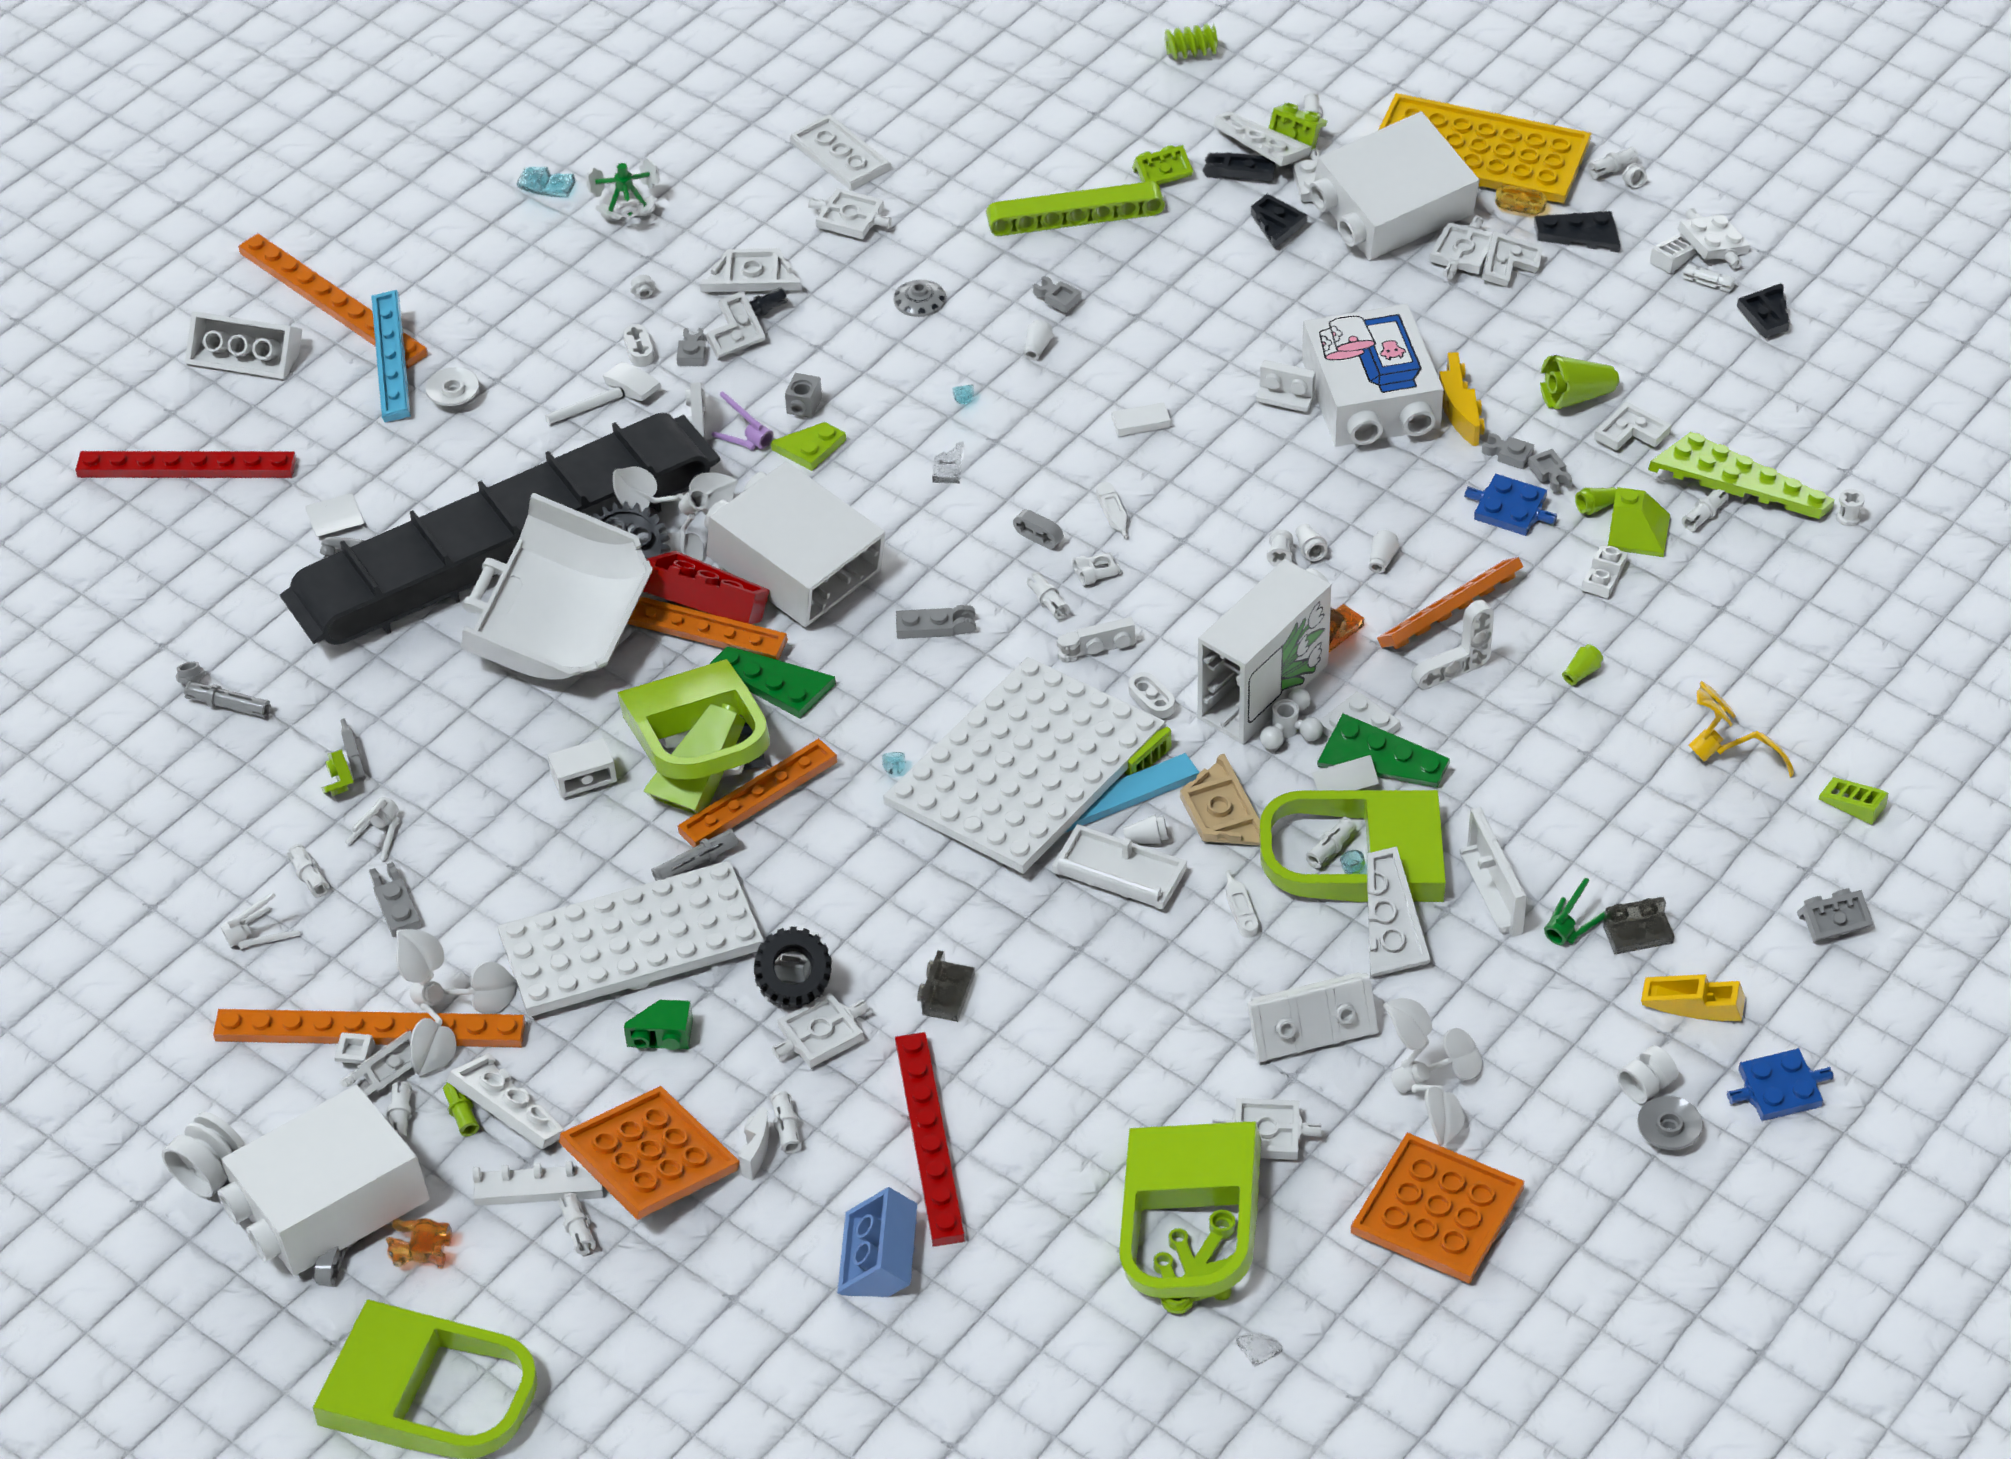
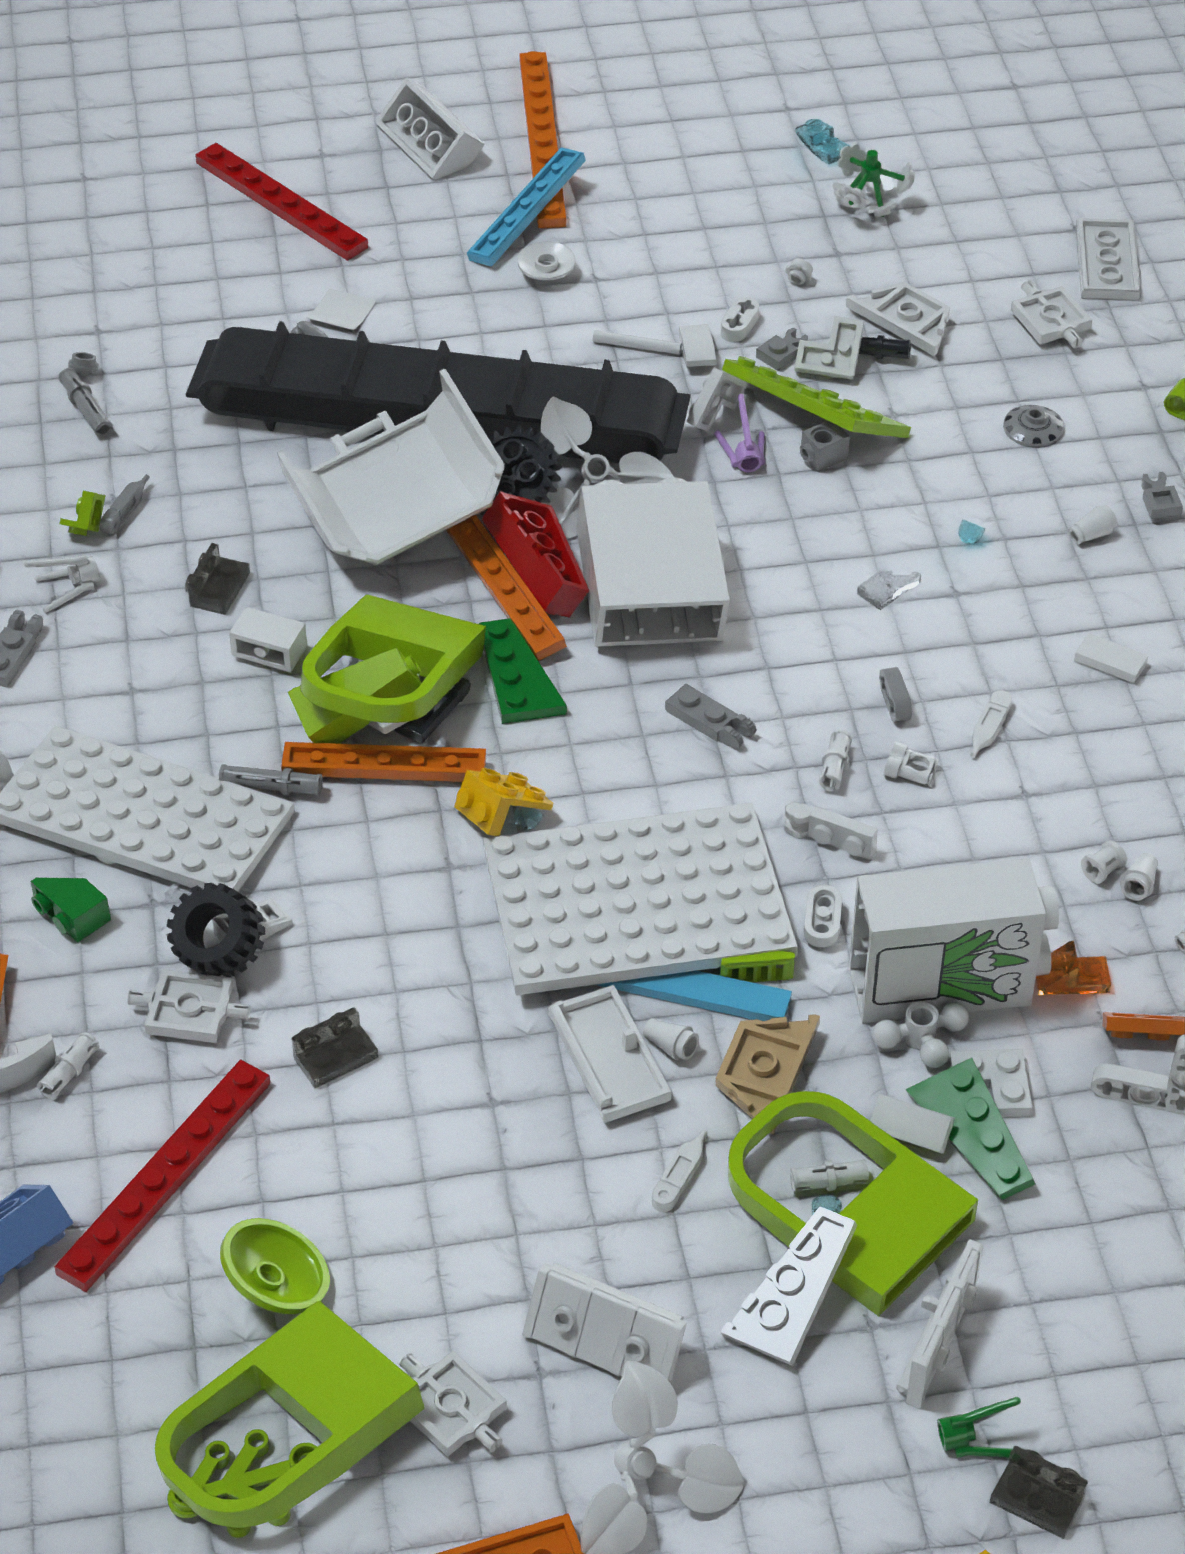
camera: 40 degrees right, 0 degrees up
(489, 757) = (215, 581): none -> clear smoke bracket
(769, 366) = (822, 403): none -> lime wing
(810, 445) = (786, 493): lime wing -> none
(867, 764) = (488, 796): none -> yellow bracket
(1076, 1132) = (274, 1266): none -> lime dish

